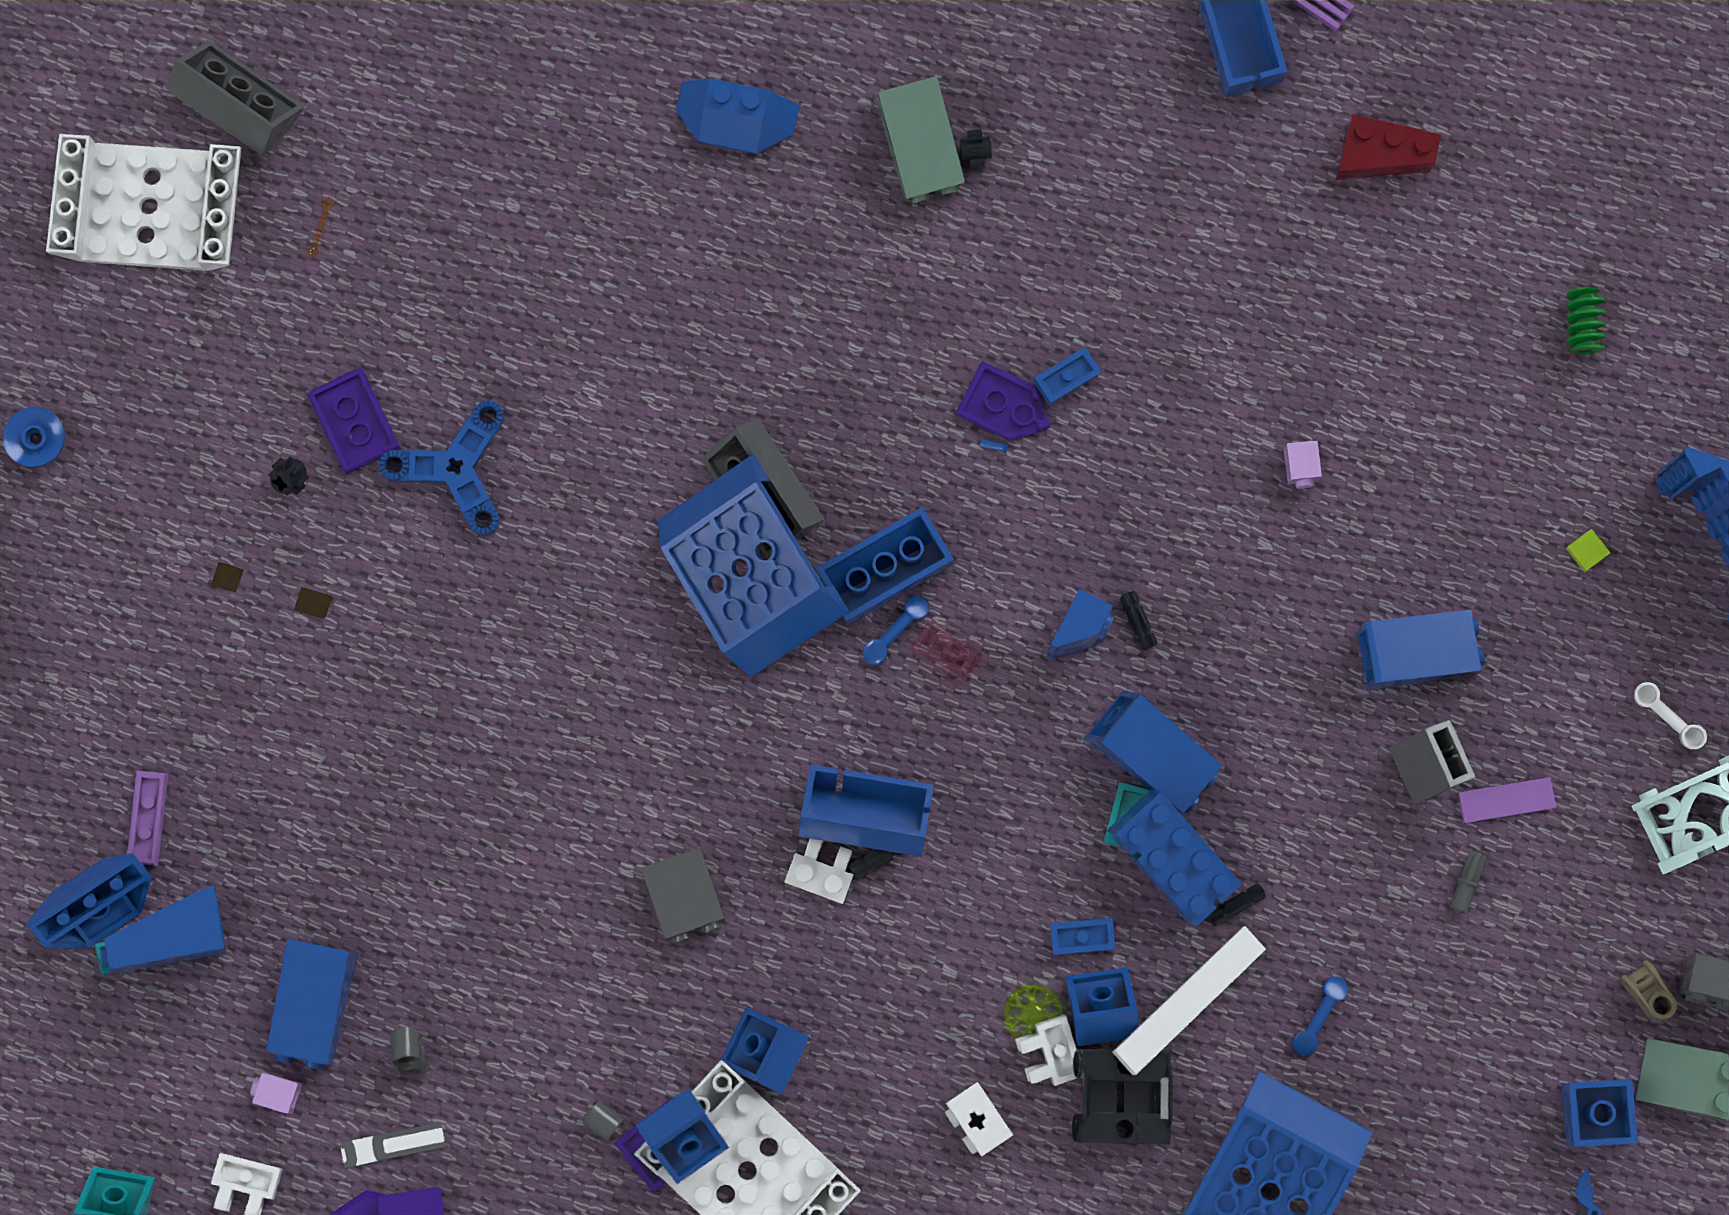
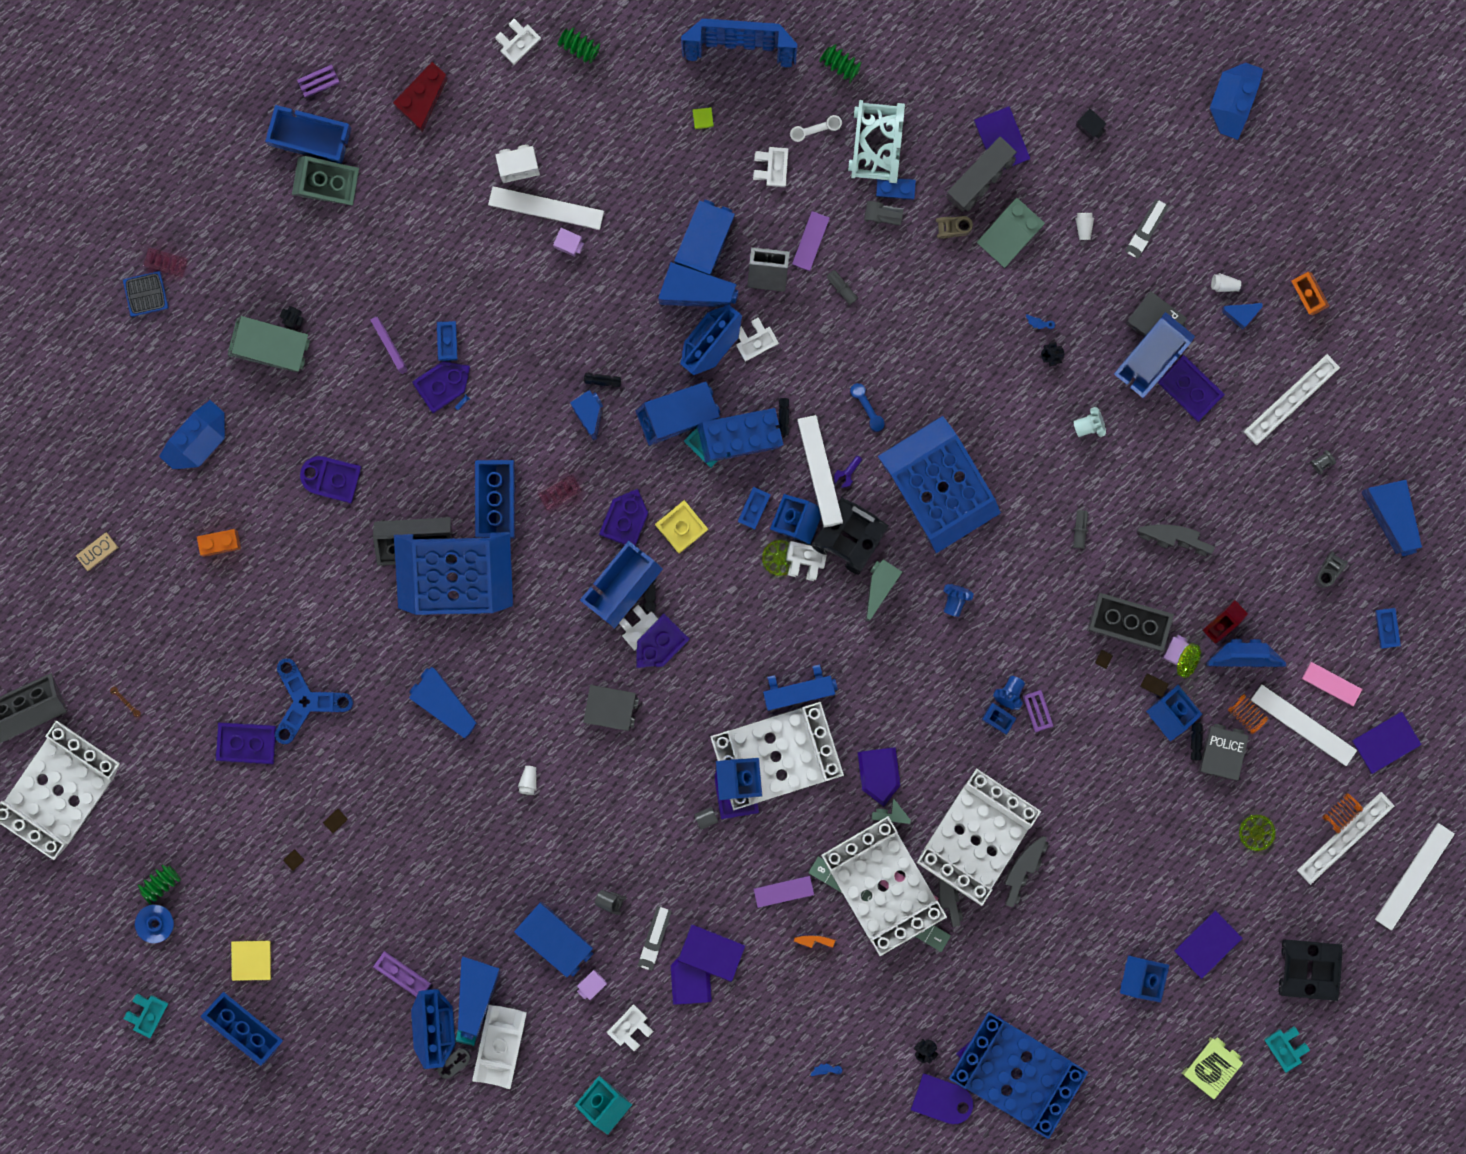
camera: 60 degrees left, 5 degrees up
(55, 598) = (251, 960): none -> light yellow tile
(58, 968) = (457, 1067): none -> dark grey beam
(92, 413) = (158, 883): none -> green piece
(119, 1011) = (499, 1046): none -> white piece
(288, 476) = (257, 795): black gear -> none
(505, 73) = (97, 551): none -> tan tile
(516, 838) = (528, 781): none -> white cone
(558, 656) = (440, 701): none -> blue slope
(608, 226) = (218, 542): none -> orange brick
(764, 1050) = (717, 711): blue slope -> none
(785, 329) = (332, 478): none -> dark purple tile
(814, 912) = (659, 643): none -> dark purple tile
(858, 1153) = (800, 692): none -> blue brick
(876, 650) = (537, 530): blue bar -> none
(962, 763) = (625, 518): none -> dark purple tile
(976, 1101) = (830, 616): white brick -> none
(997, 849) = (681, 527): none -> light yellow tile
(1014, 299) = (389, 345): none -> medium lavender tile
(1080, 1181) = (881, 582): none -> sand green slope
(1190, 87) = (325, 180): none -> sand green slope
(1211, 1041) = (849, 470): none -> dark purple bar
(1285, 739) = (711, 339): none -> blue wedge
(1316, 806) = (757, 343): none -> white plate
(1332, 406) = (546, 208): none -> white tile
(1343, 675) = (693, 288): none -> blue slope
(1370, 330) = (517, 163): none -> white brick
(1536, 241) = (520, 44): none -> white plate
(1581, 692) = (776, 168): none -> white plate
(1599, 1113) = (1000, 291): blue brick -> none
(1605, 875) = (883, 214): none -> dark grey piece
(1658, 888) = (902, 189): none -> blue plate

